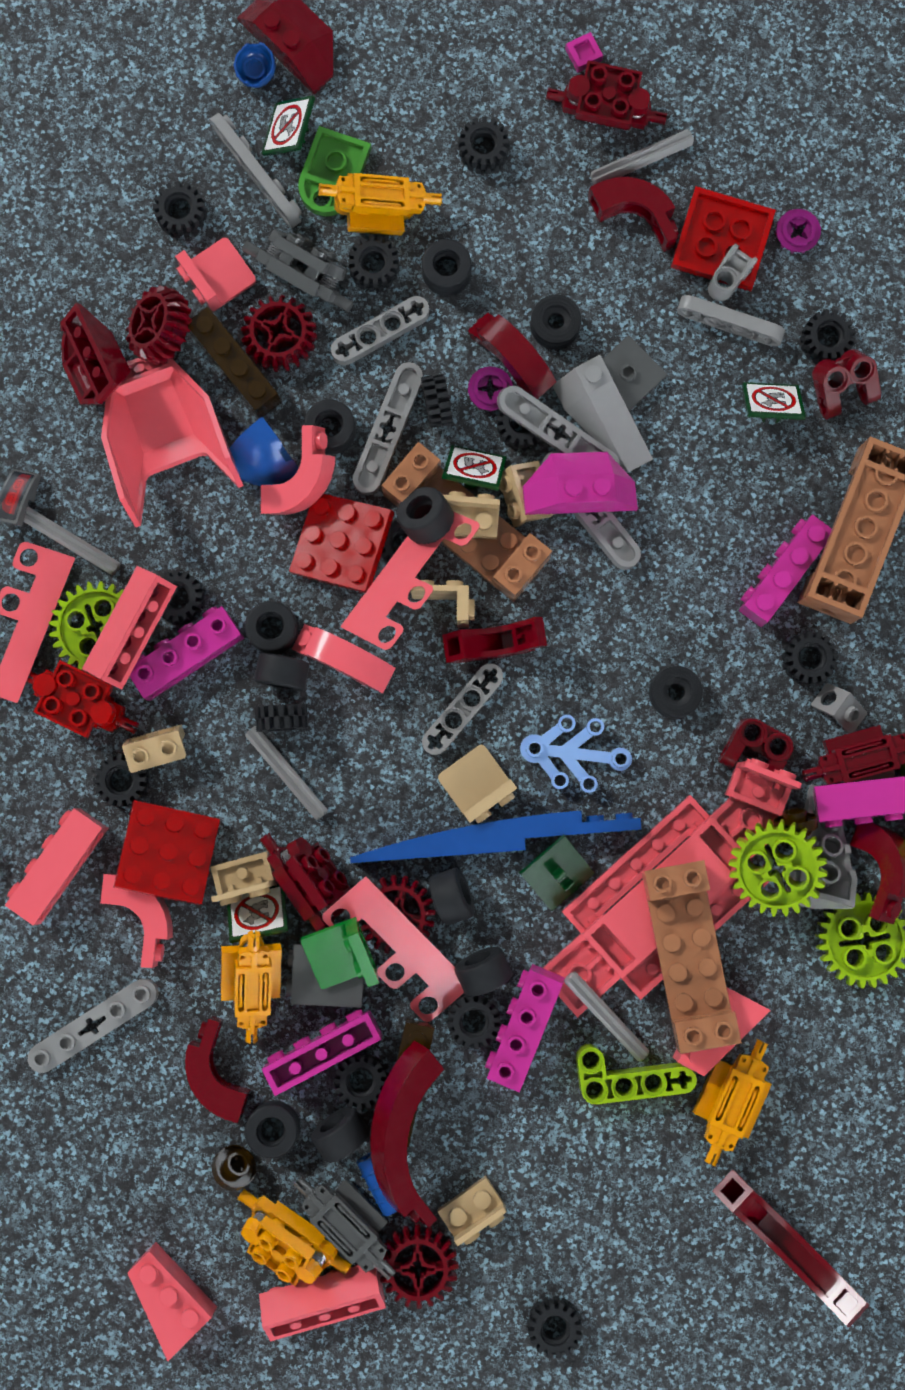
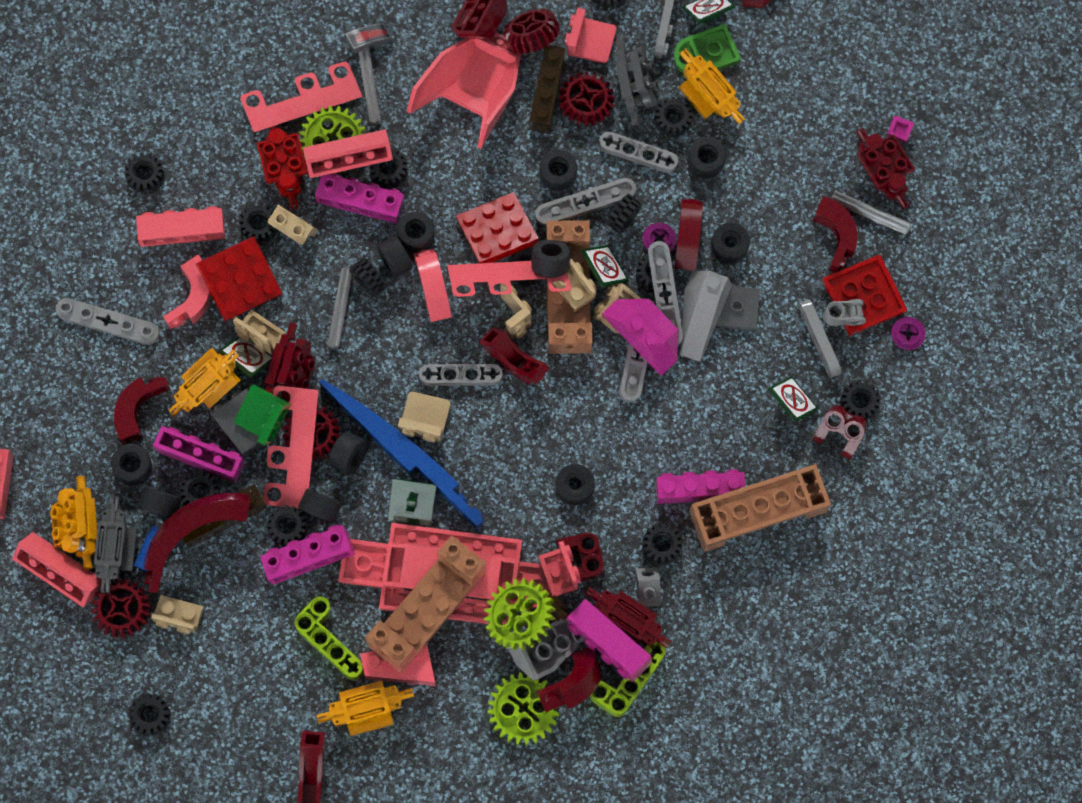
camera: 45 degrees right, 10 degrees down
(233, 1167) = (92, 460): dark brown plate -> none
(262, 456) = (506, 147): blue brick -> none
(308, 482) = (517, 181): coral arch -> none
(487, 130) = (796, 132): black tyre -> none
(571, 753) = (488, 454): light blue plant -> none
(606, 1016) = (352, 596): light grey axle -> none

